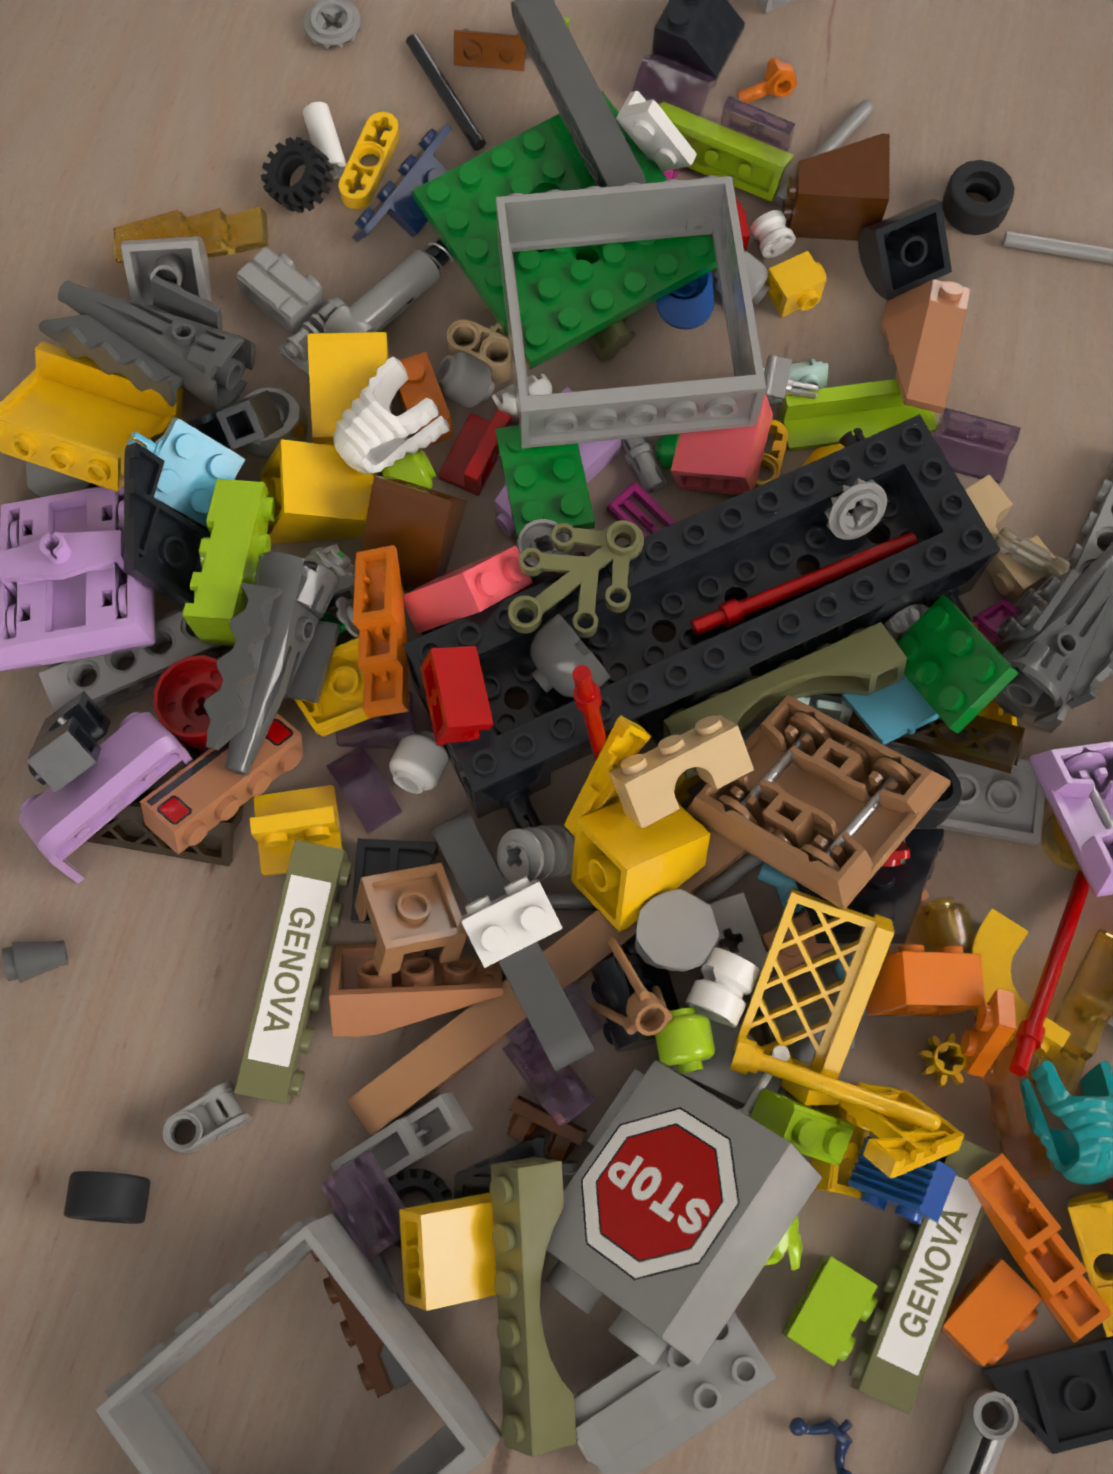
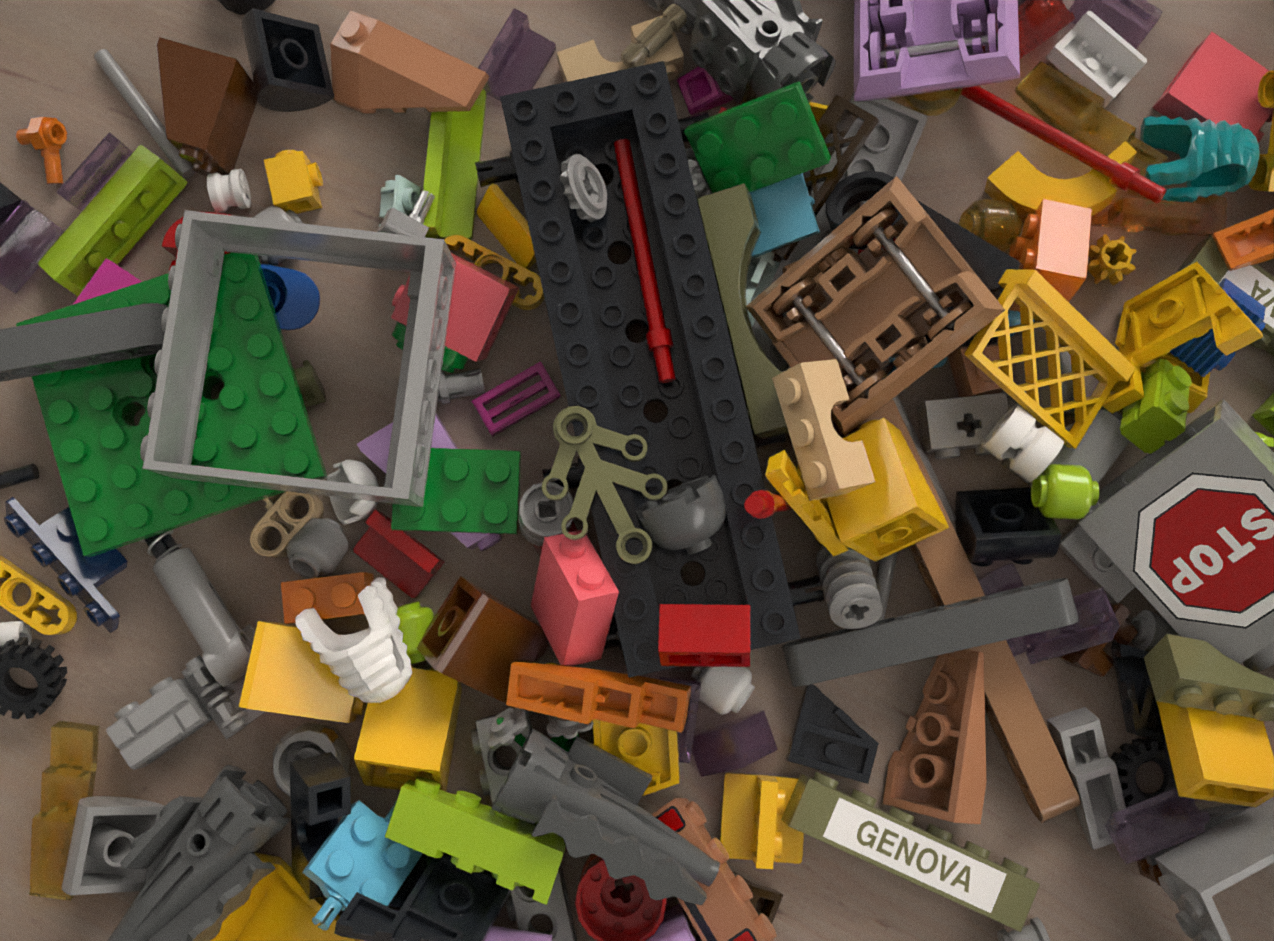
camera: 75 degrees left, 10 degrees up
(411, 914) = (888, 725): medium nougat panel -> none
(510, 921) = (924, 631): white bracket -> none
(644, 1009) = (1043, 521): medium nougat plant -> none
(655, 133) = (91, 280): white bracket -> none
(676, 931) = (964, 473): light grey hat -> none
(751, 1059) = (1094, 435): yellow piece -> none
(780, 1052) = (1094, 407): white hinge -> none
(989, 1033) = (1115, 211): orange plate -> none

